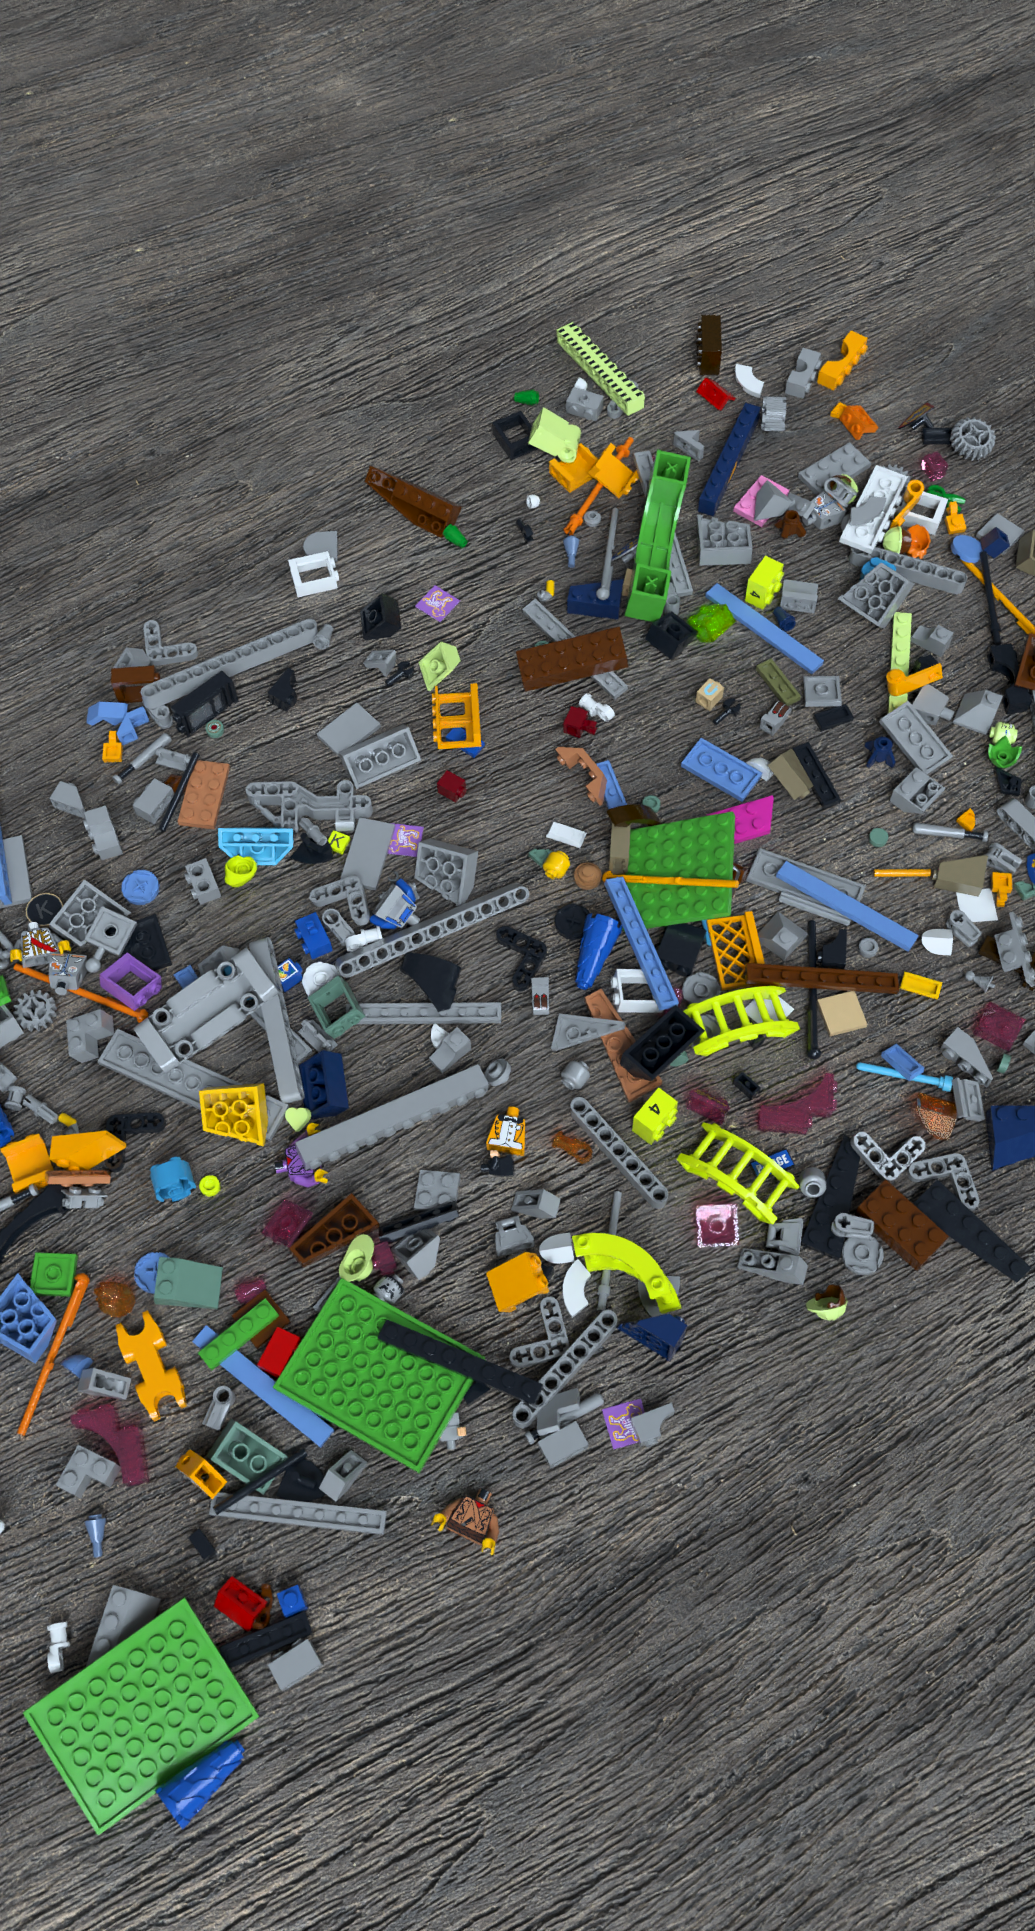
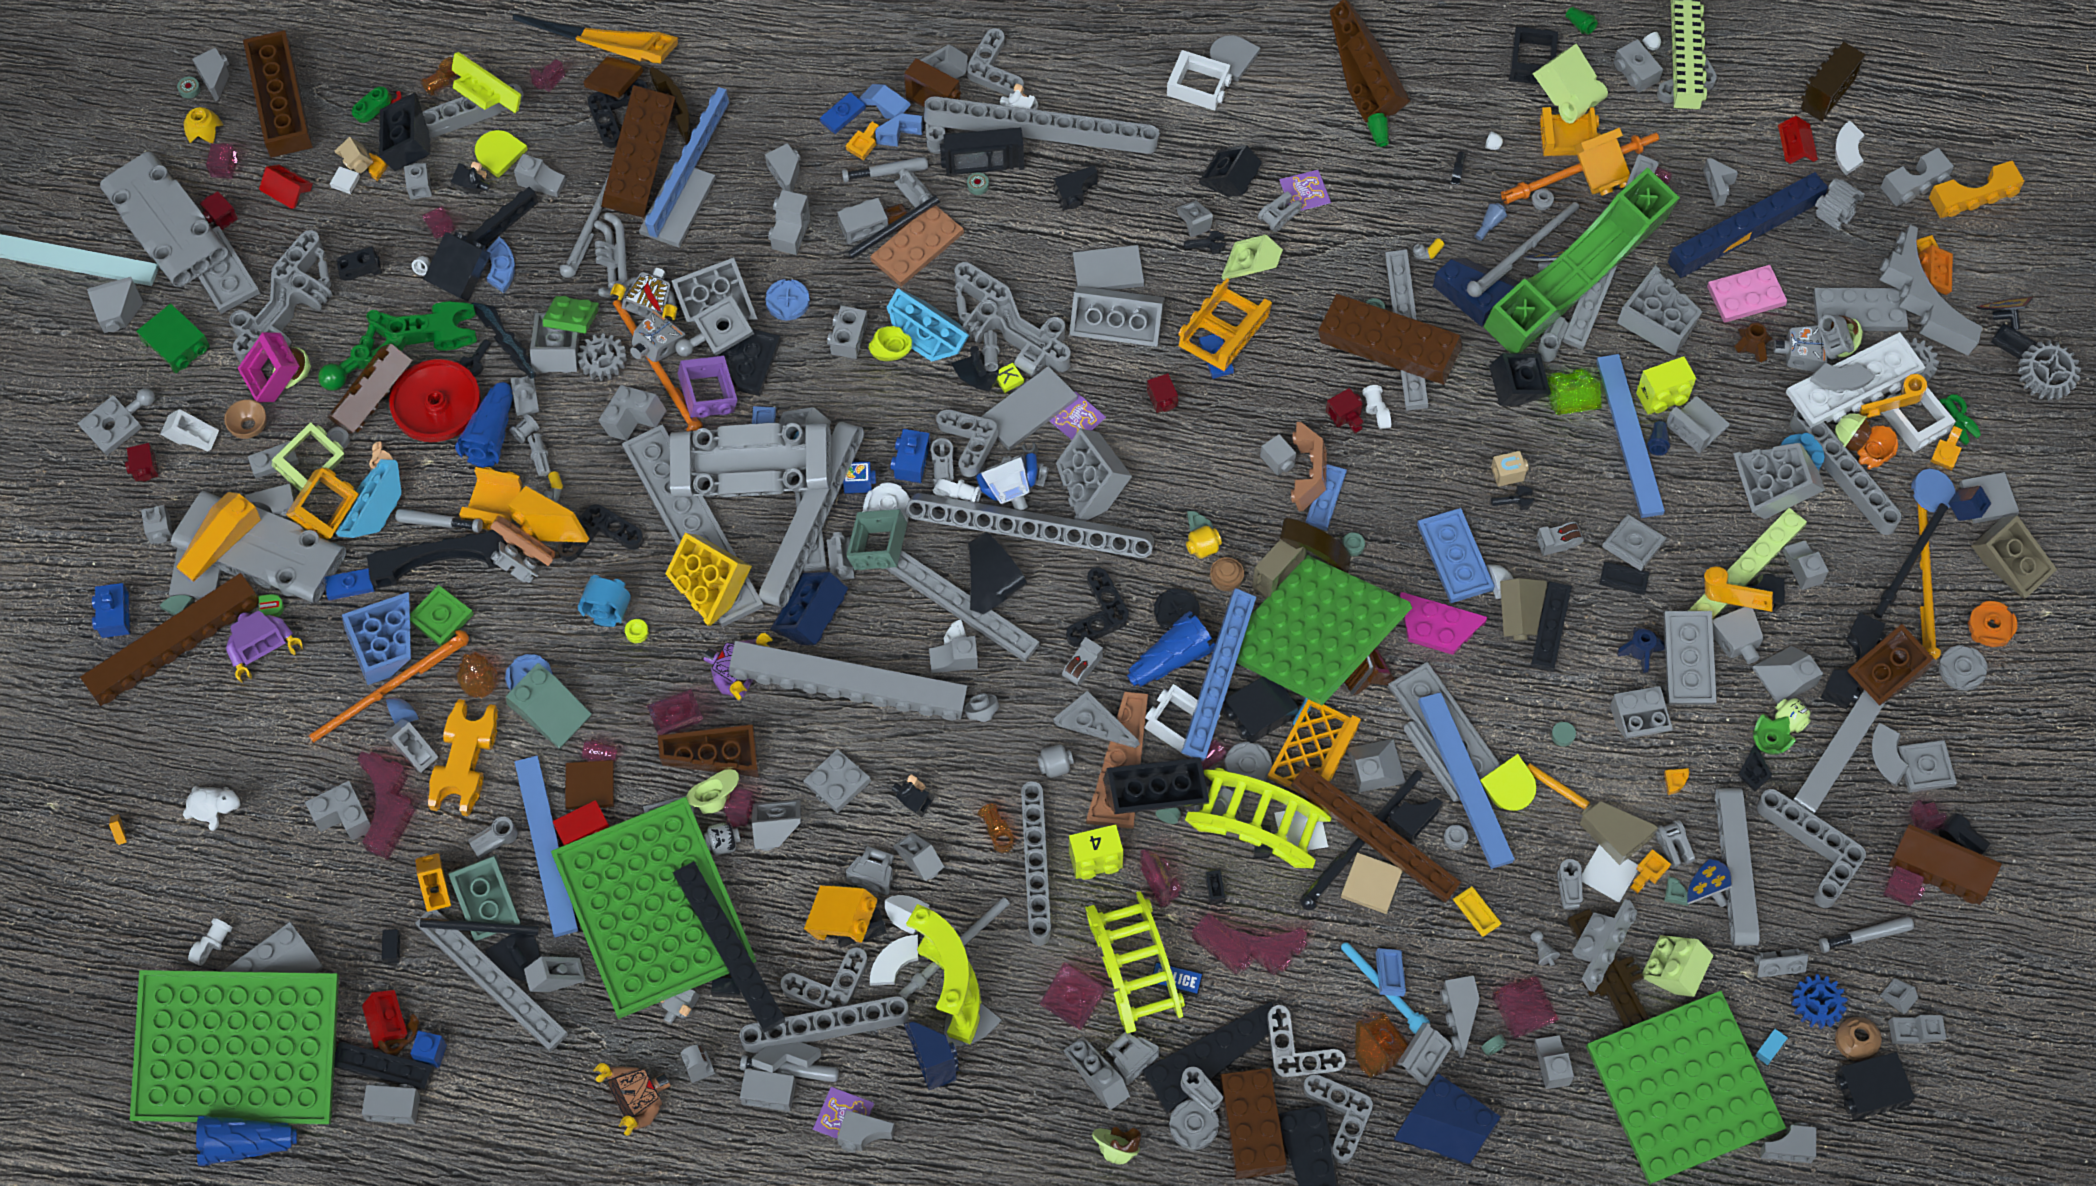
camera: 35 degrees right, 0 degrees up
(43, 909) = (681, 261): black tile -> none
(82, 739) = (842, 113): none -> blue plate
(95, 1528) = (312, 866): sand blue cone -> none
(201, 656) = (1019, 100): none -> white piece
(238, 1334) = (558, 783): bright green plate -> none
(298, 1117) = (763, 621): yellowish green tile -> none
(323, 637) = (1158, 154): light grey cone -> none
(424, 1220) = (791, 794): black plate -> none
(431, 629) = (1275, 216): none -> light grey piece
(498, 1464) = (697, 1063): none -> light grey leg
(508, 1133) = (945, 772): torso -> none
(558, 778) = (1278, 455): none -> light grey brick
(566, 834) = (1241, 518): white tile -> none
(673, 880) = (1249, 588): light orange bar -> none
(770, 502) = (1749, 301): light grey slope -> none
(778, 682) = (1594, 503): olive plate -> none
(802, 506) = (1778, 324): light grey plate -> none
(812, 1182) = (1199, 1022): light grey head -> none
(867, 440) = (1920, 297): none -> light grey arch
(875, 890) = (1510, 785): none -> neon yellow tile
(934, 466) = (1977, 375): clear pink brick -> none
(935, 830) = (1637, 772): light grey piece -> none
(938, 941) = (1533, 879): white brick -> none

